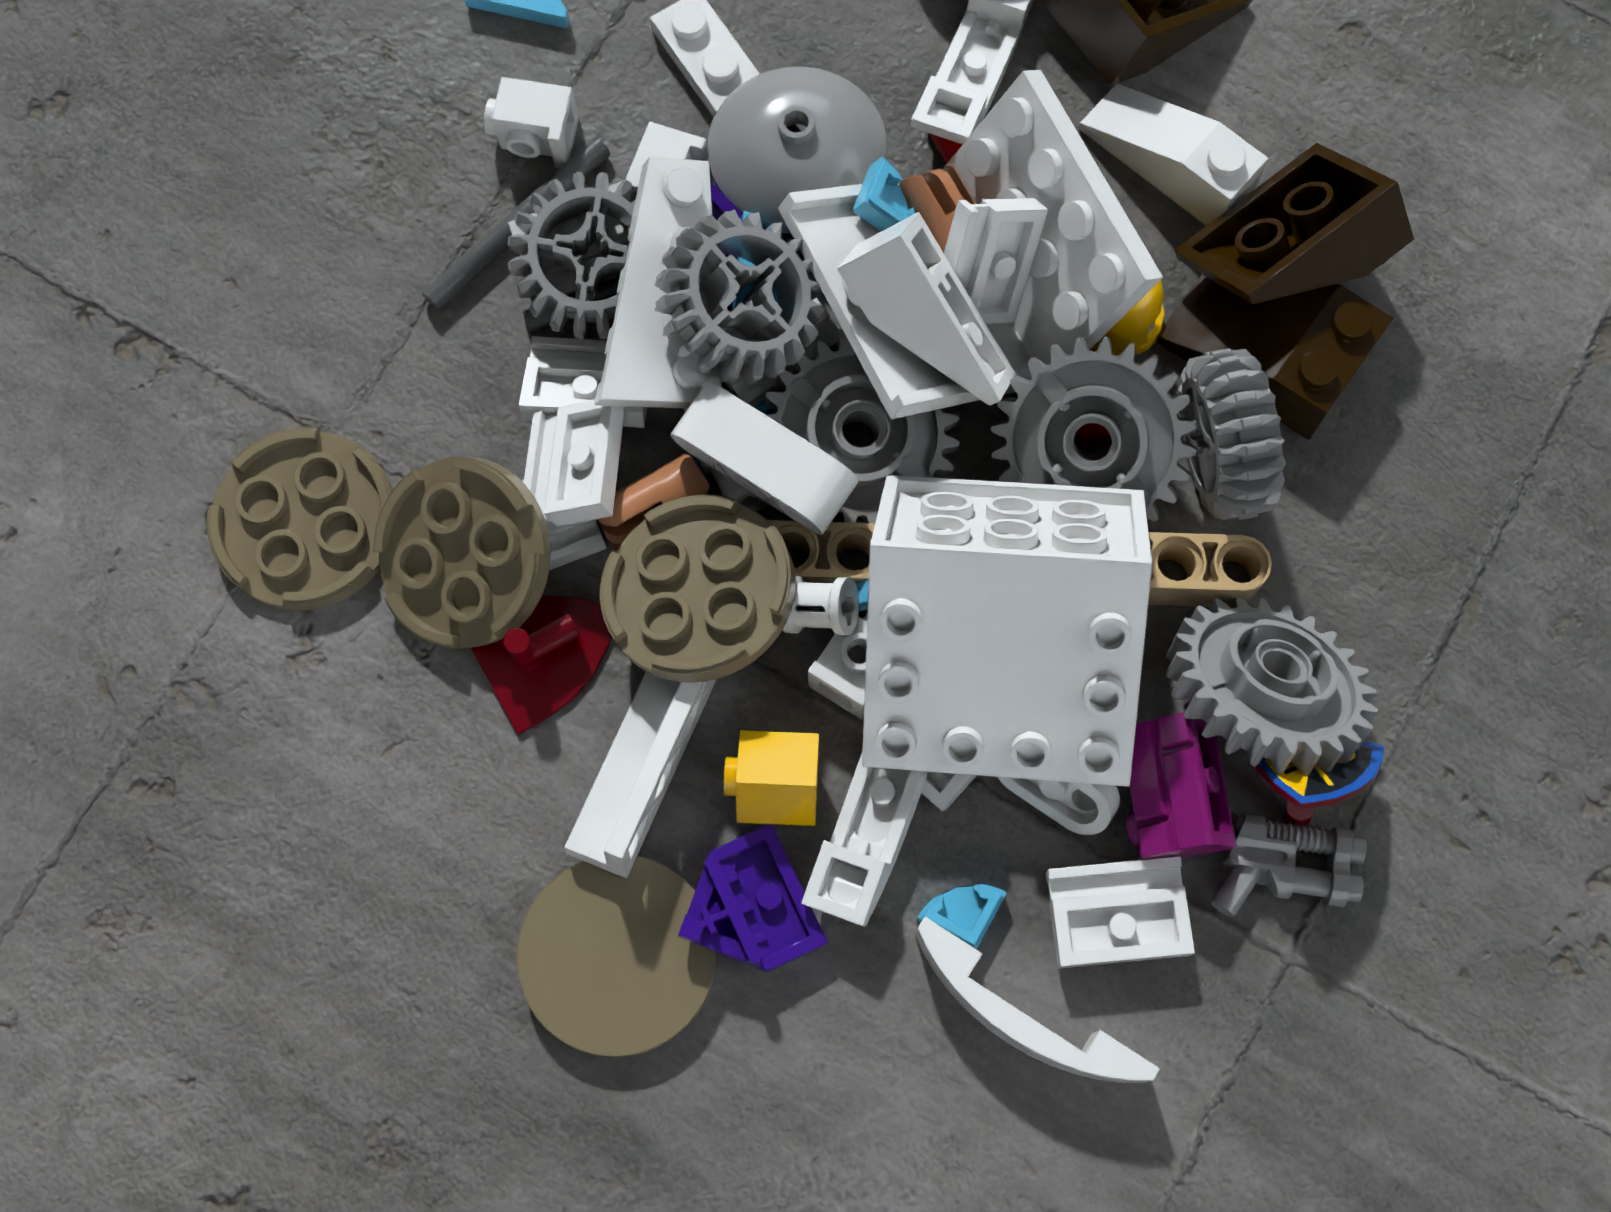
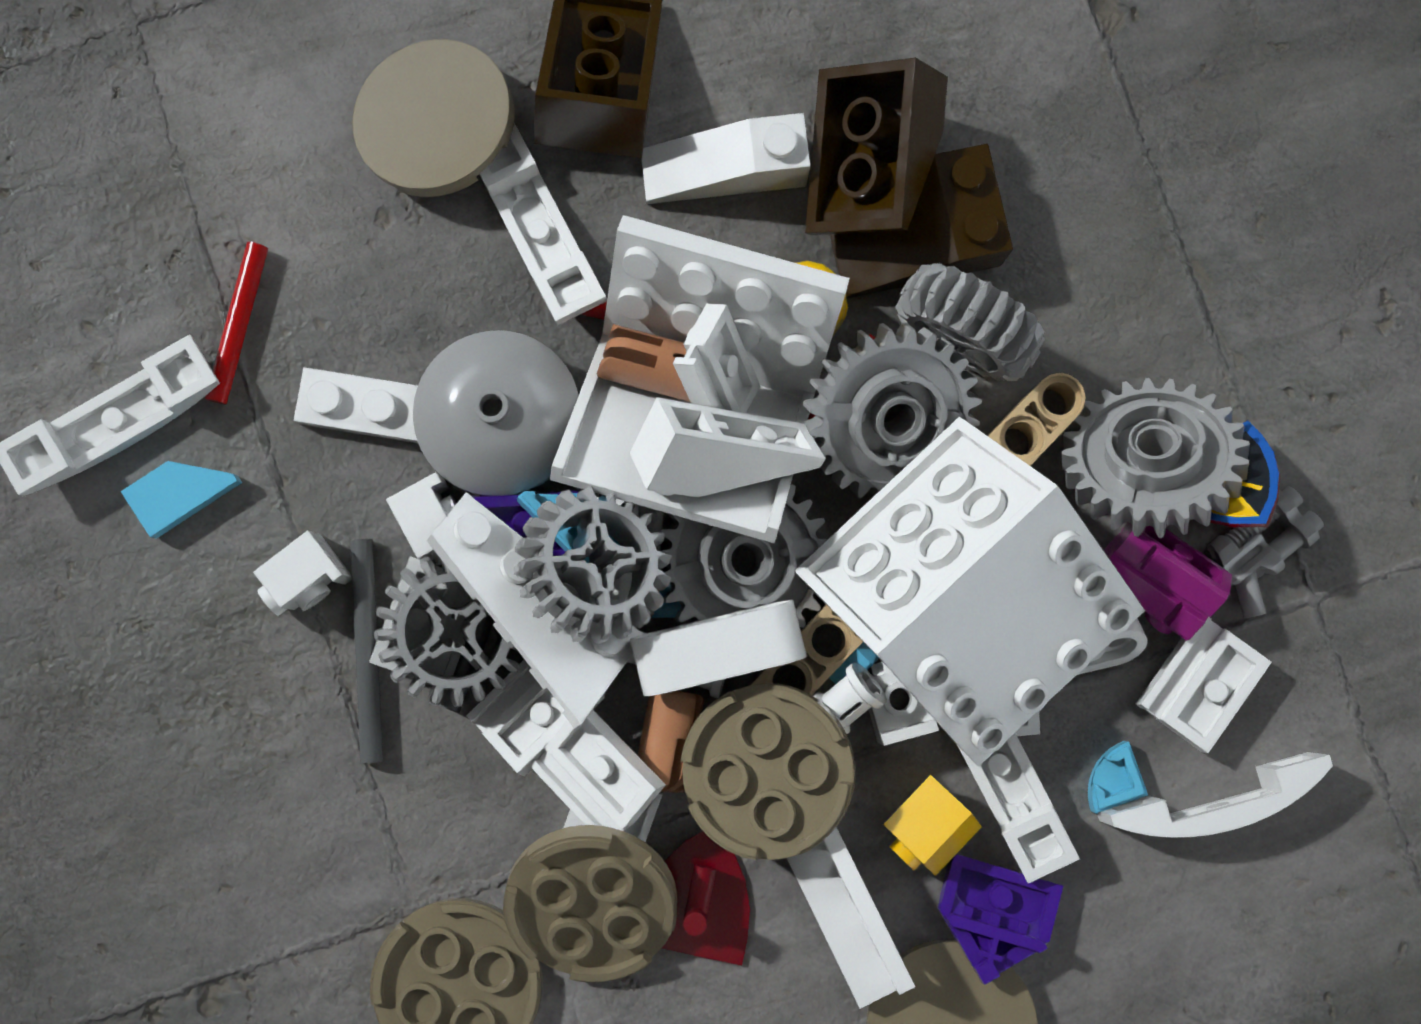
camera: 55 degrees left, 10 degrees up
(881, 197) = (604, 399): medium azure tile -> none

